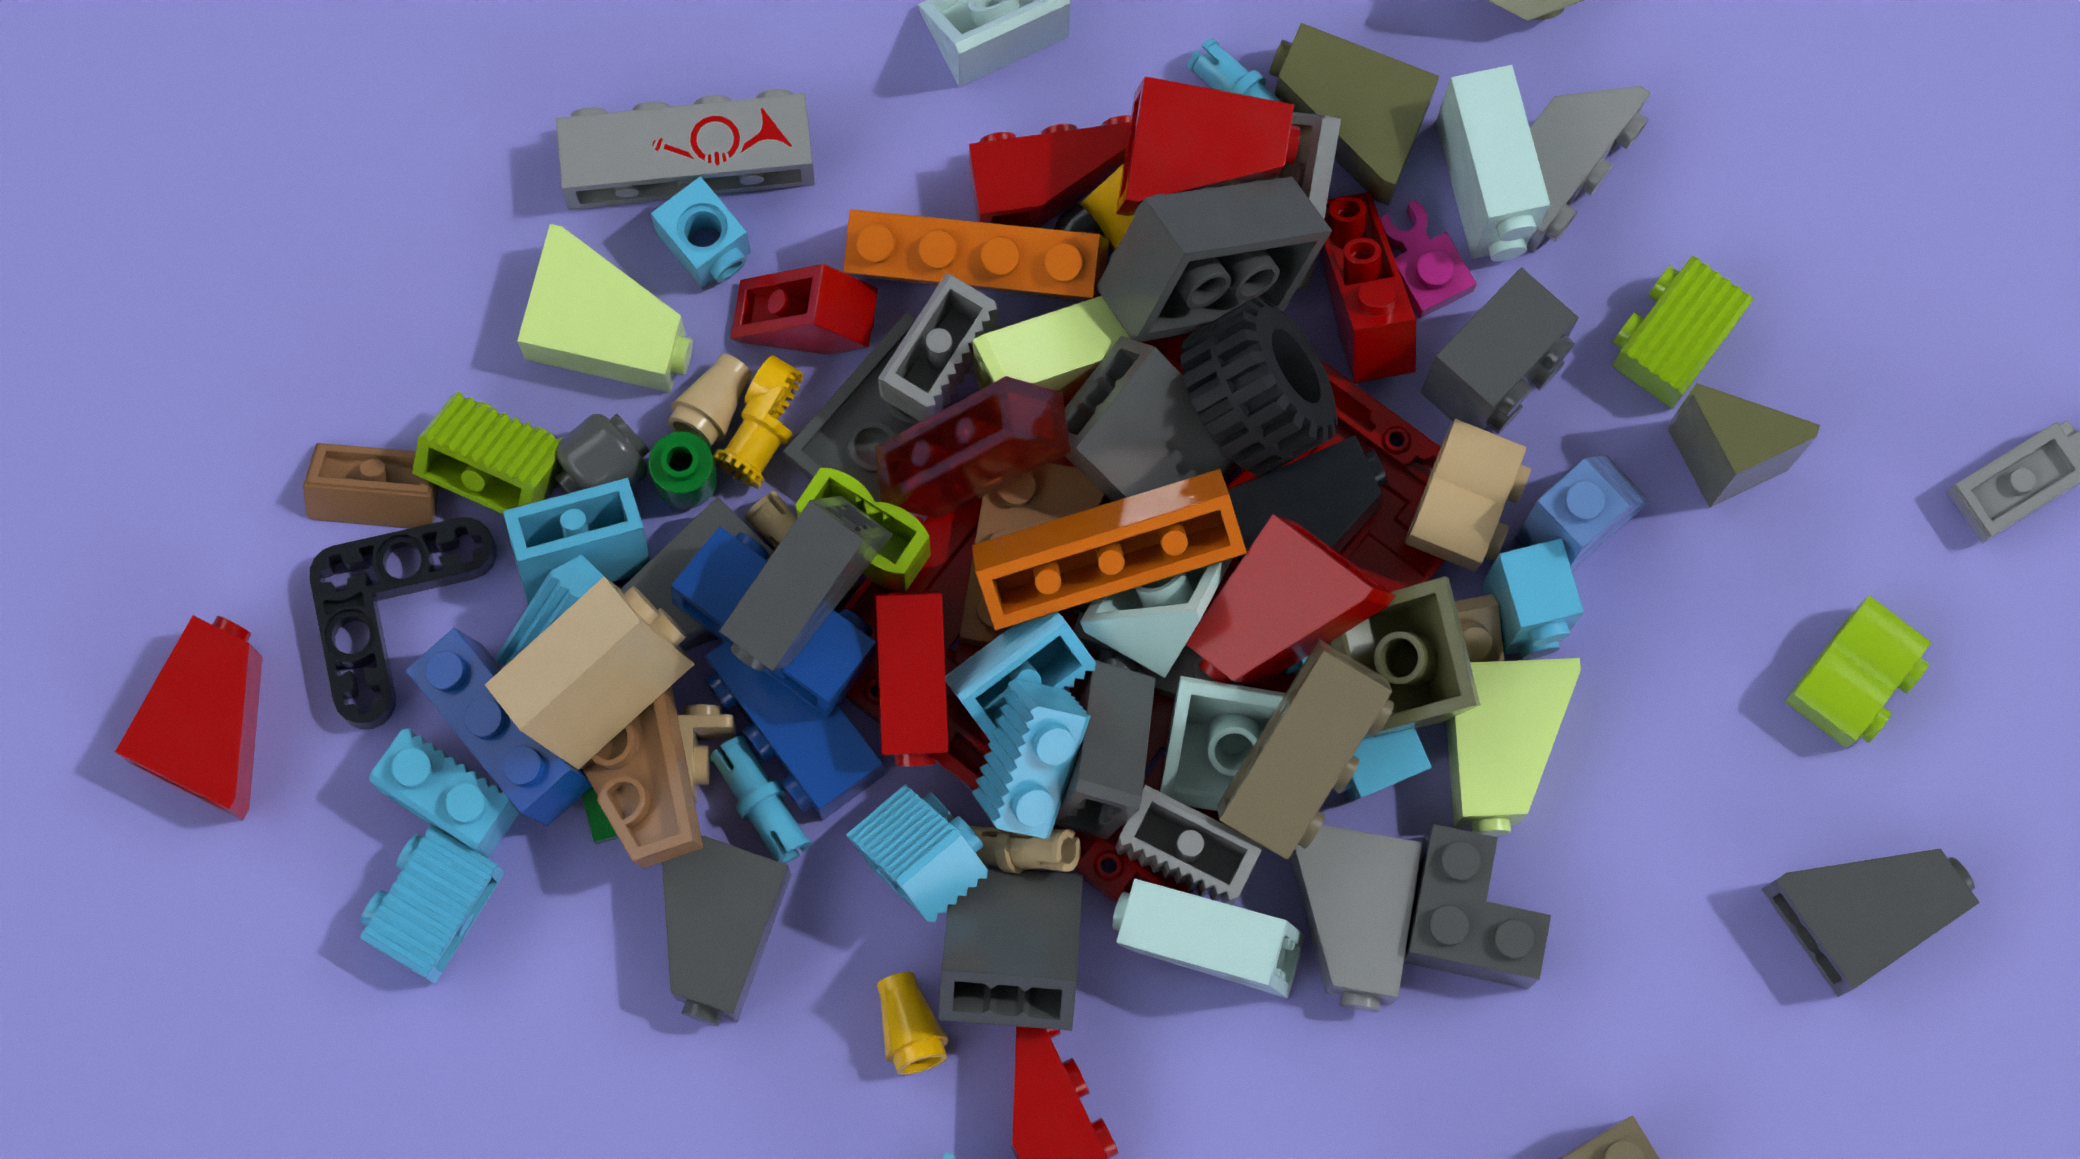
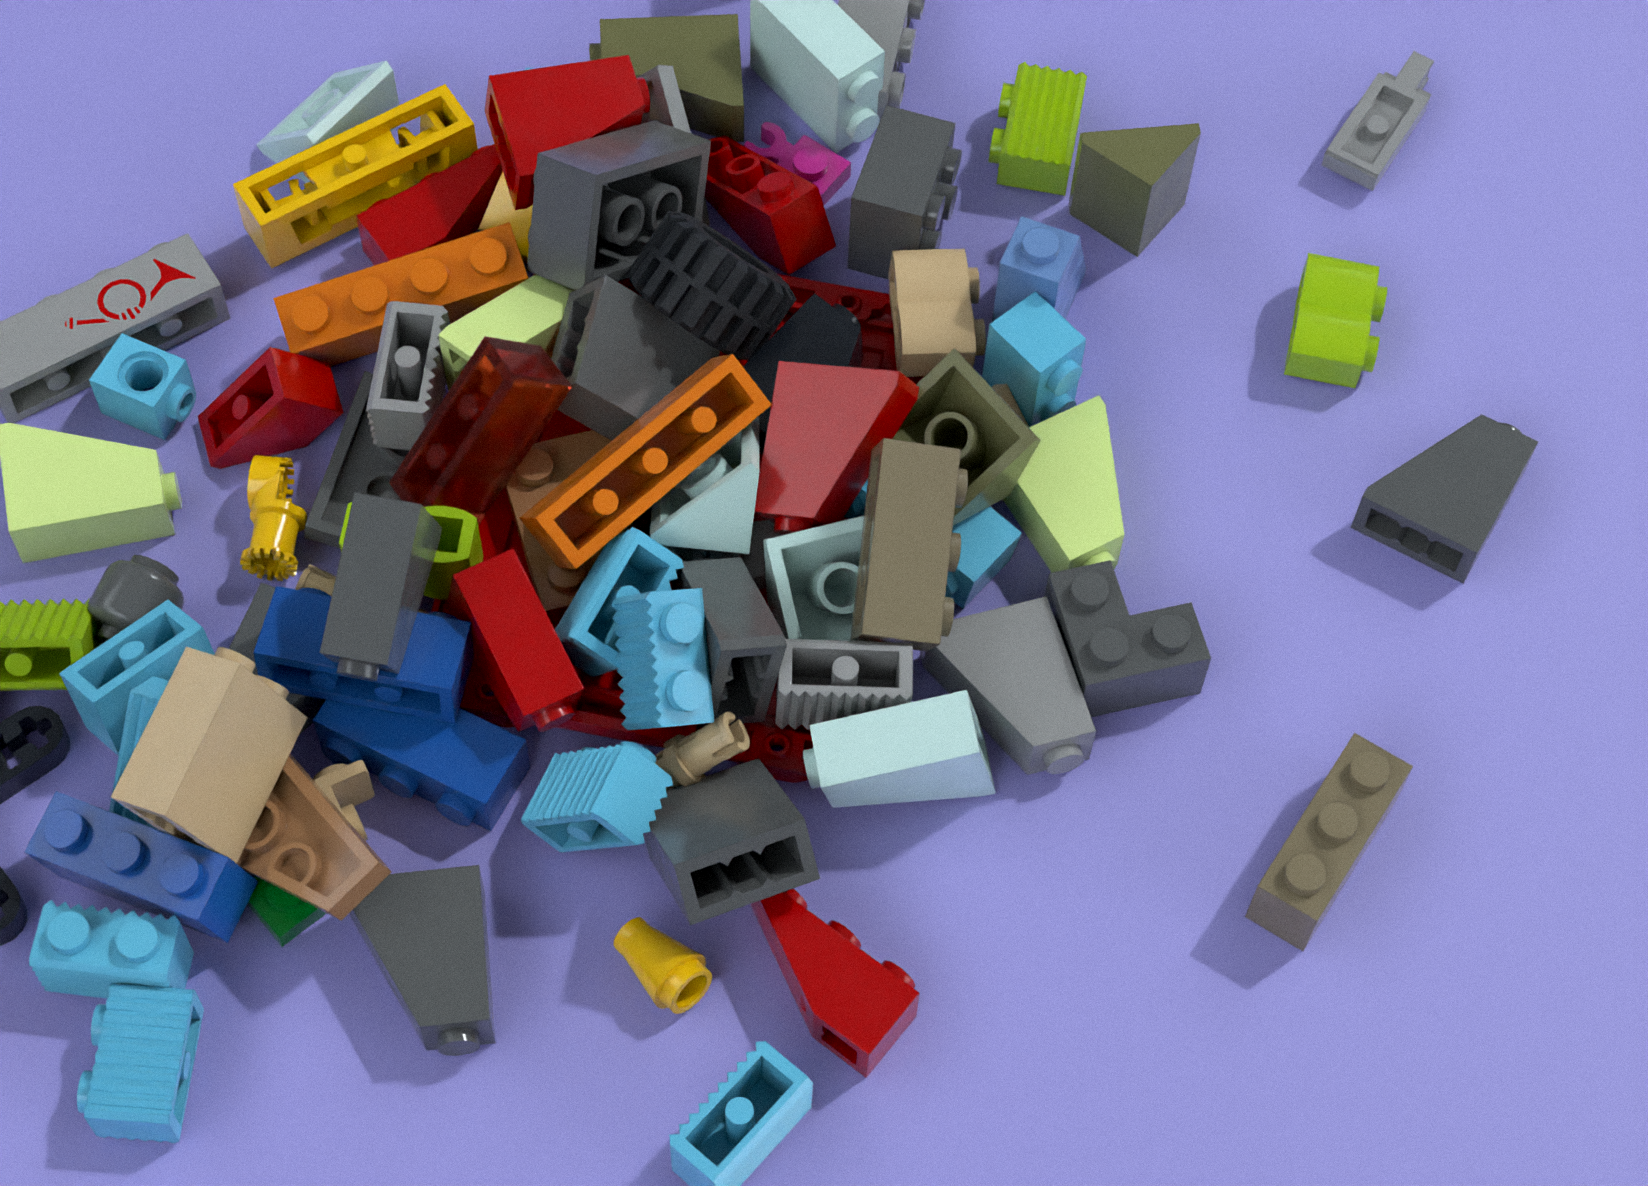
camera: 25 degrees left, 15 degrees down
(687, 487) = (217, 579): green brick -> none
(711, 400) = (216, 524): tan cone -> none
(760, 800) = (421, 830): medium azure pin -> none
(991, 94) = (352, 174): none -> yellow brick

